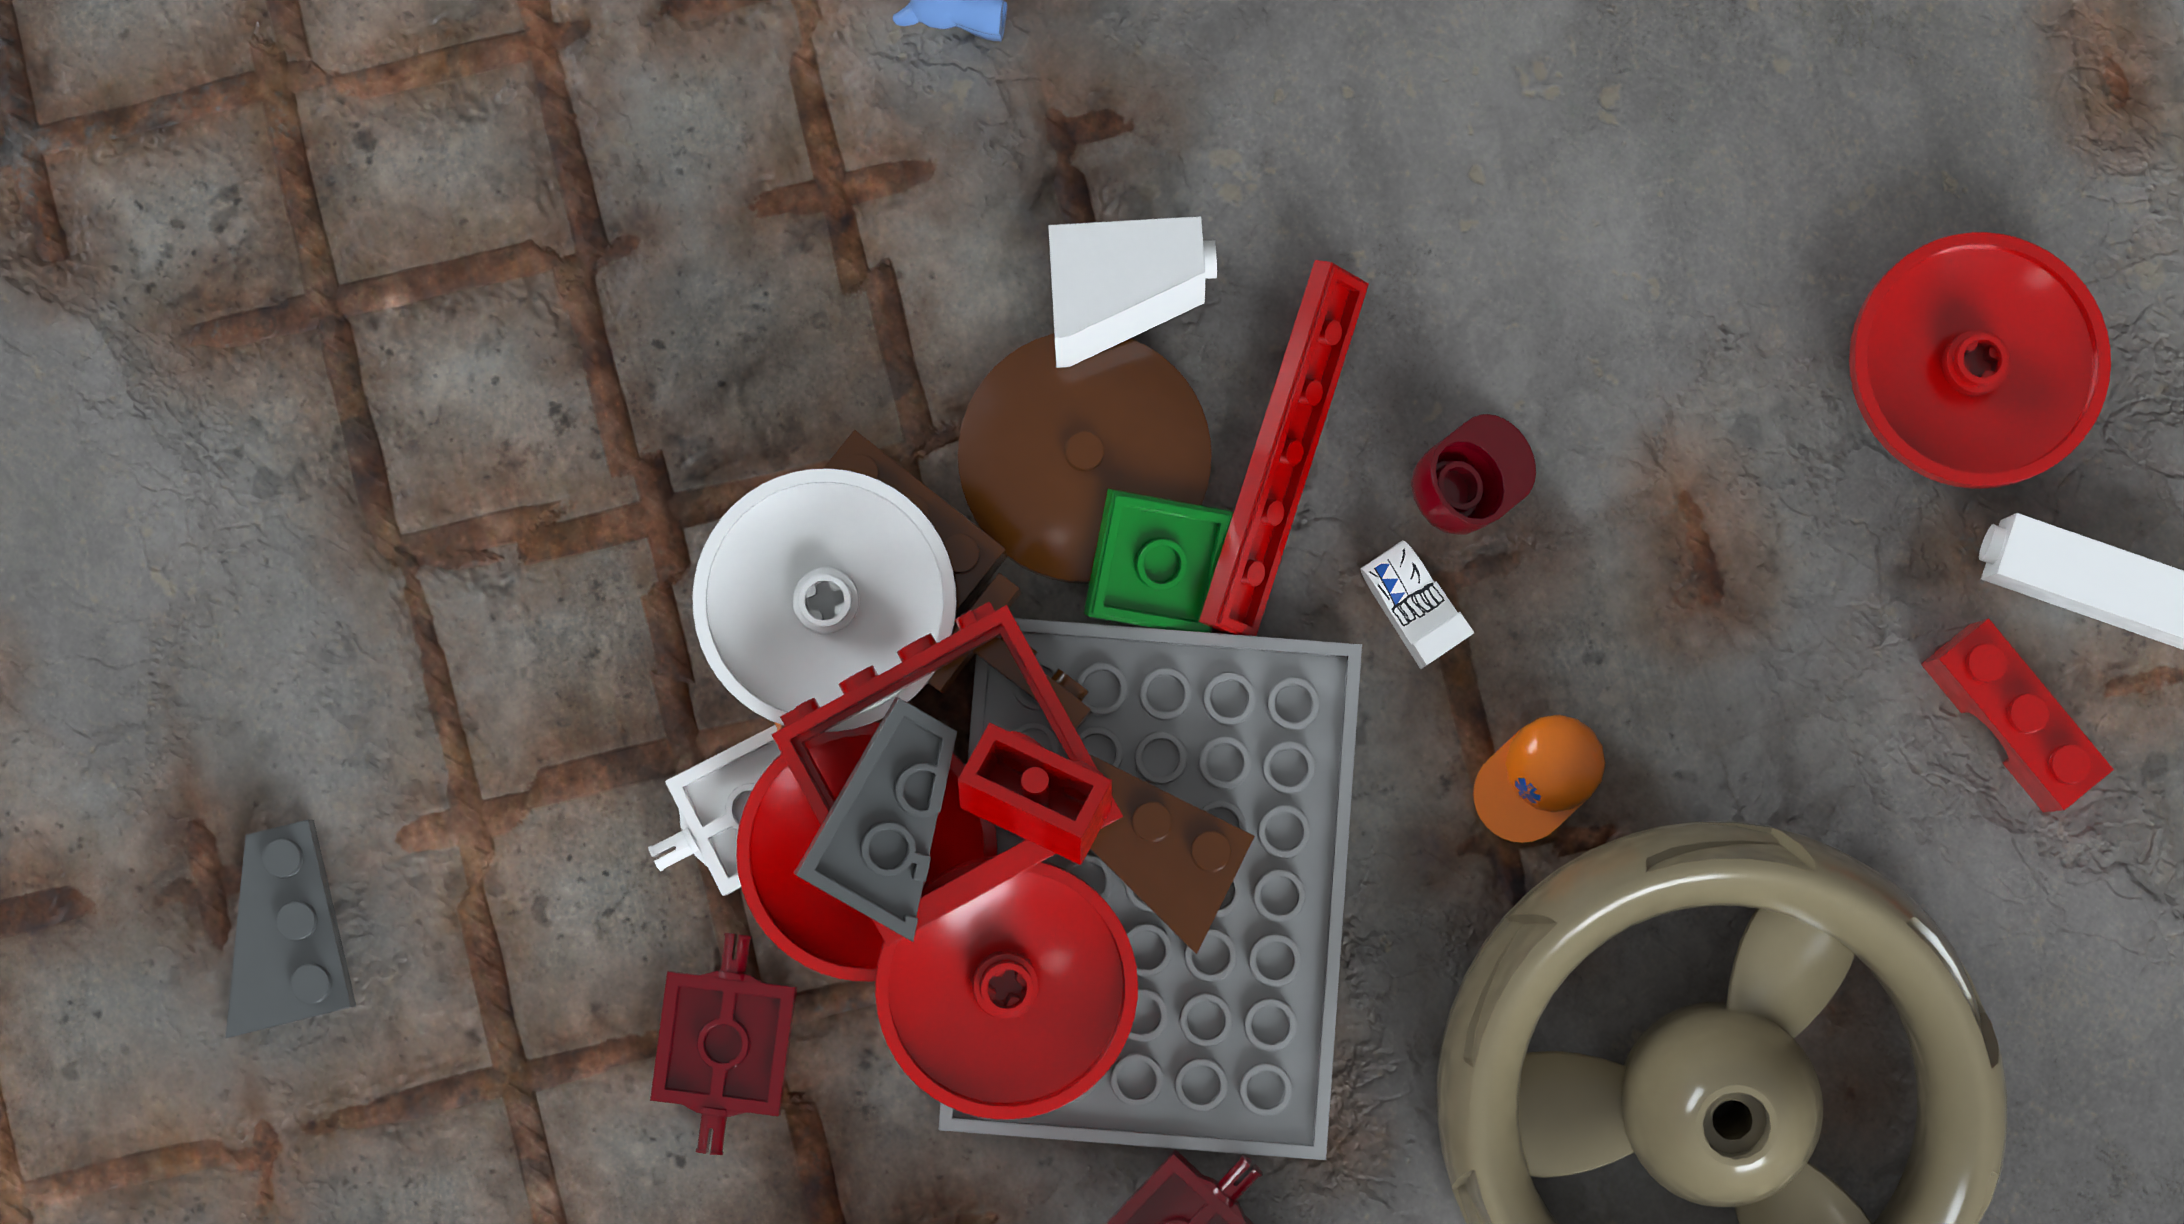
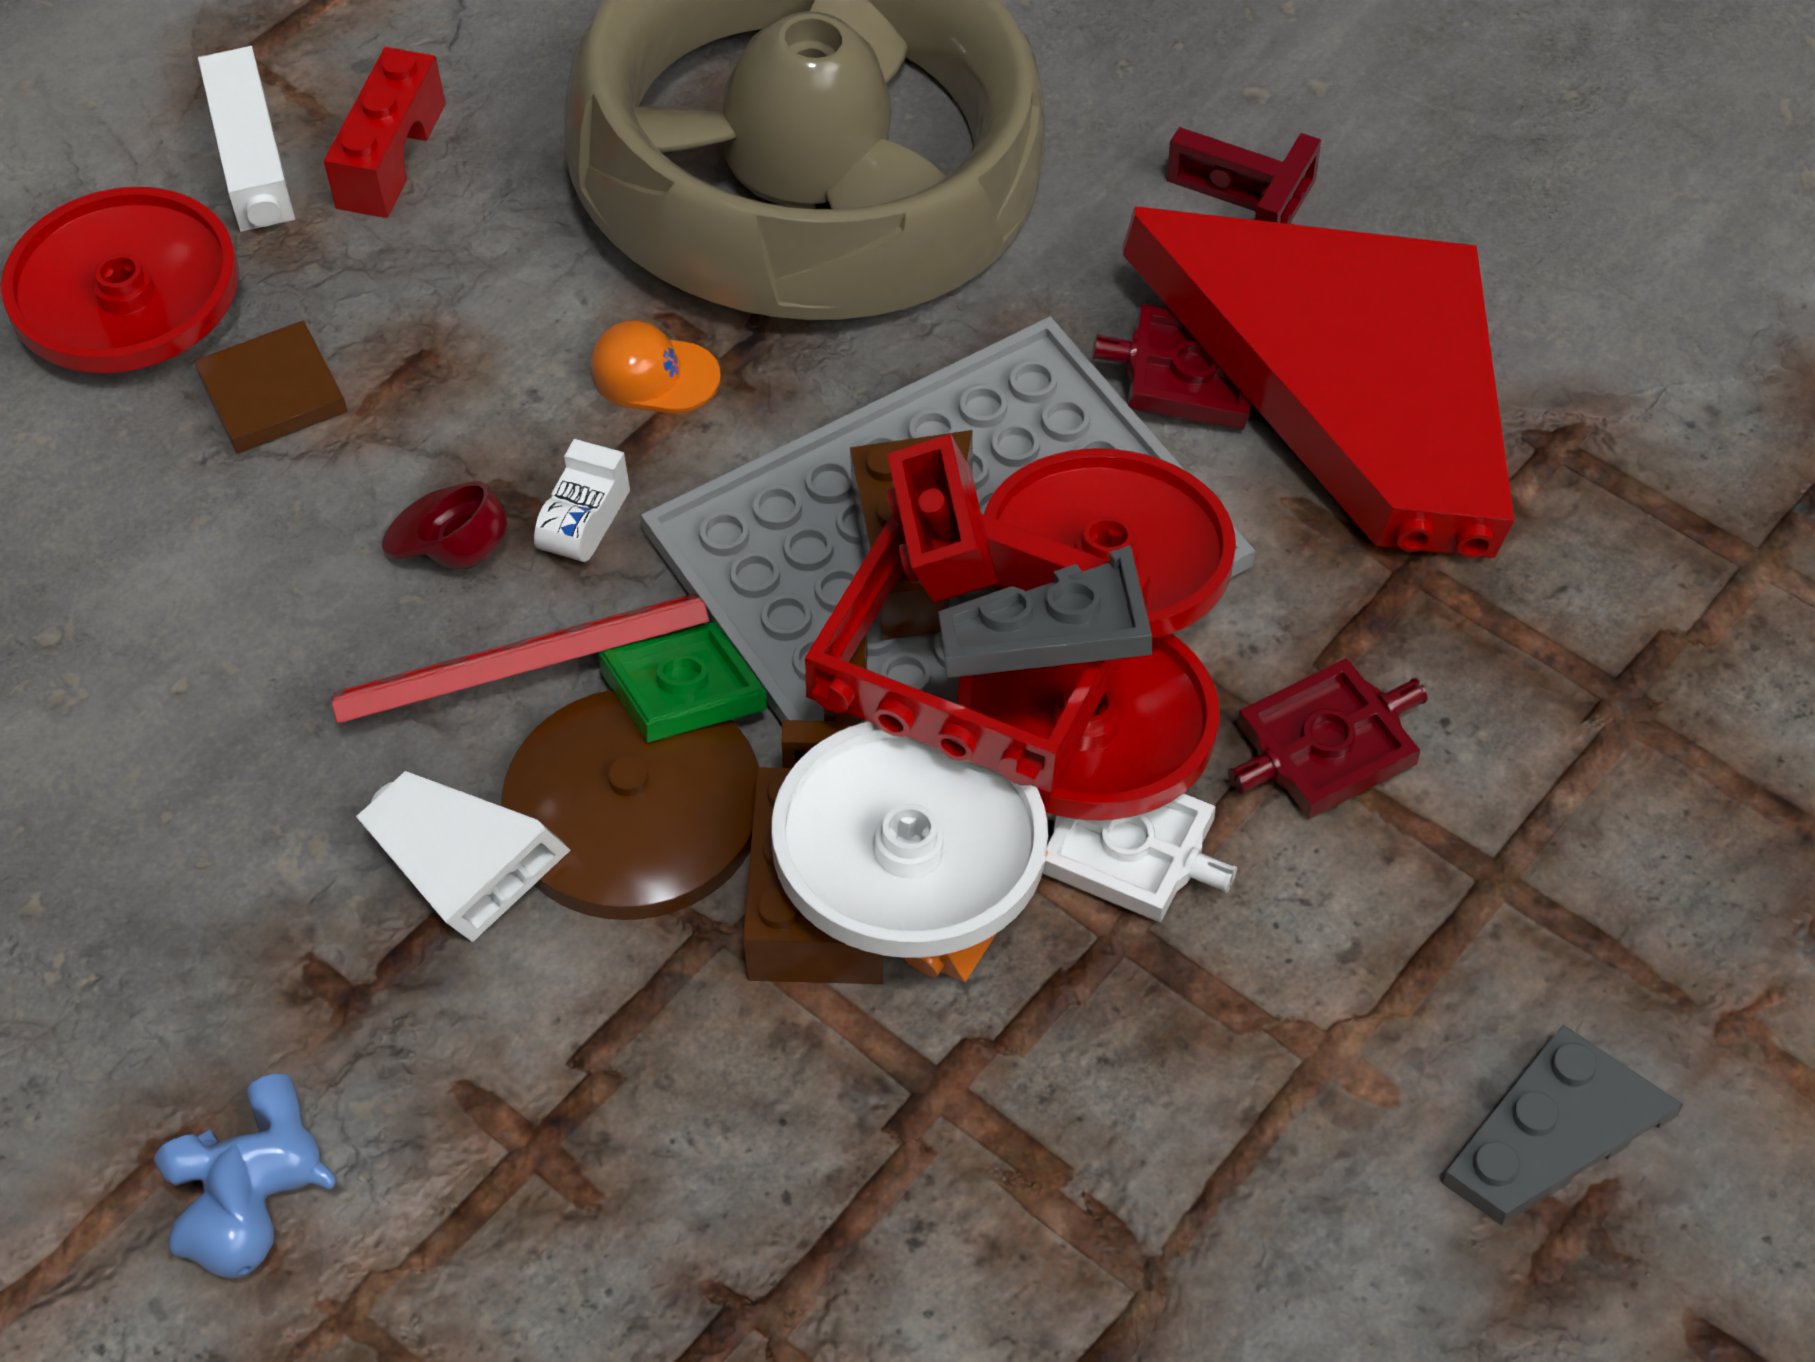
camera: 125 degrees left, 30 degrees down
(1766, 431) = (270, 386): none -> reddish brown tile

